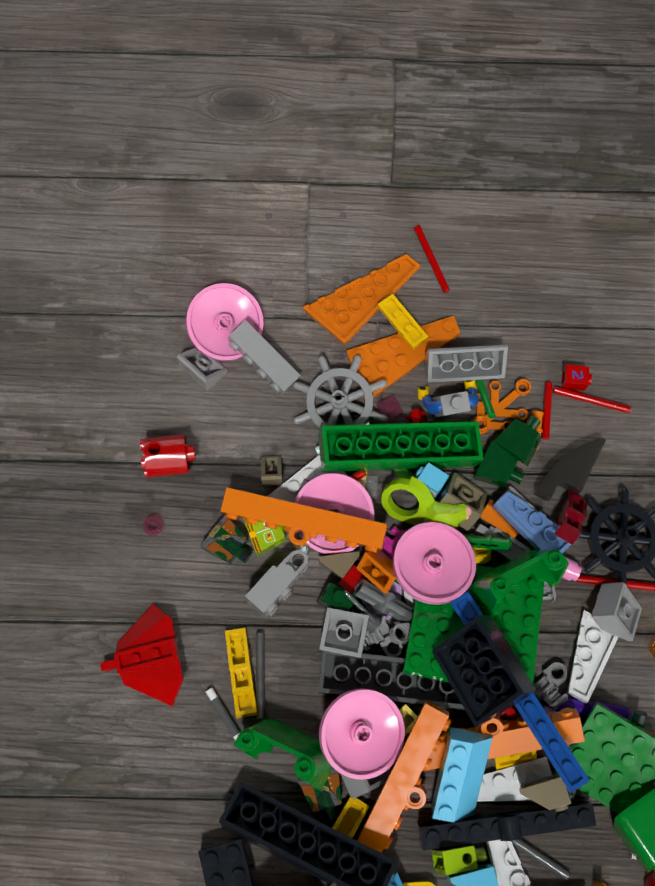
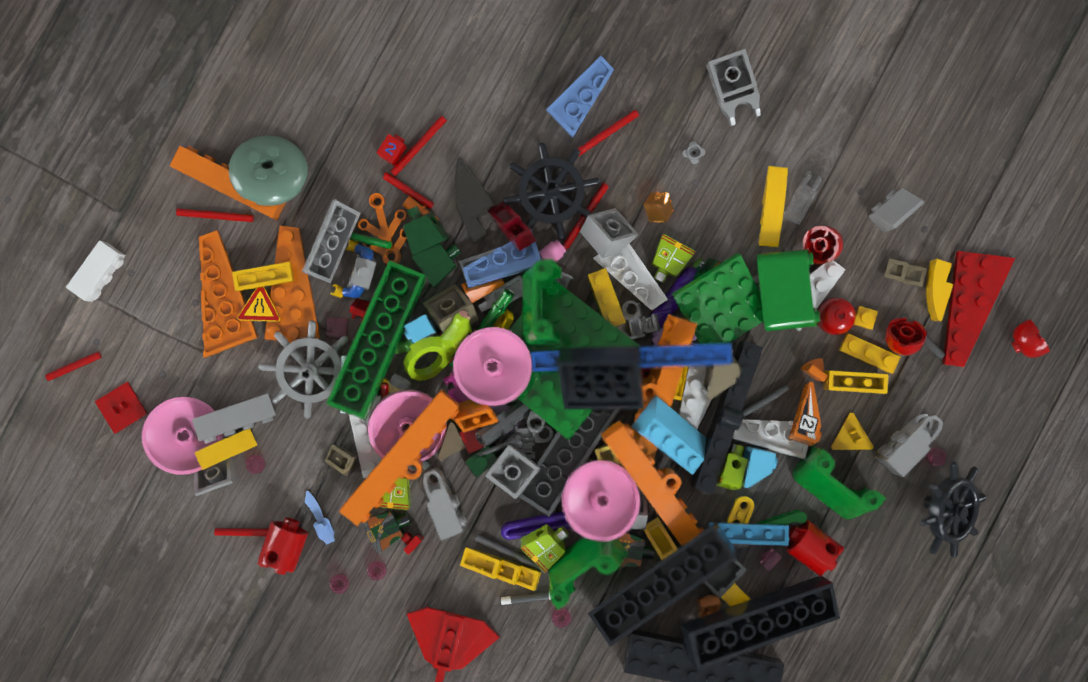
camera: 60 degrees left, 15 degrees up
(159, 413) = (240, 532): none -> red bar
(182, 548) = (376, 576): none -> clear pink plate
(201, 484) = (322, 525): none -> light blue piece
(213, 758) = (561, 624): none -> clear pink plate
(221, 261) = (121, 407): none -> red piece
(225, 574) = (412, 542): none -> red tile
(228, 397) = (255, 464): none -> clear pink plate
(230, 364) = (225, 449): none -> yellow tile
(237, 206) = (73, 366): none -> red bar
(286, 704) = (545, 546): none -> lime torso
(300, 686) = (523, 527): none -> dark purple piece
(330, 186) = (96, 271): none -> white brick
(372, 332) = (259, 308): none -> piece
(466, 256) = (216, 176): none -> orange brick
(487, 291) = (270, 185): none -> sand green brick
(556, 640) = (605, 297): none -> yellow brick
(627, 686) = (670, 258): none -> lime torso

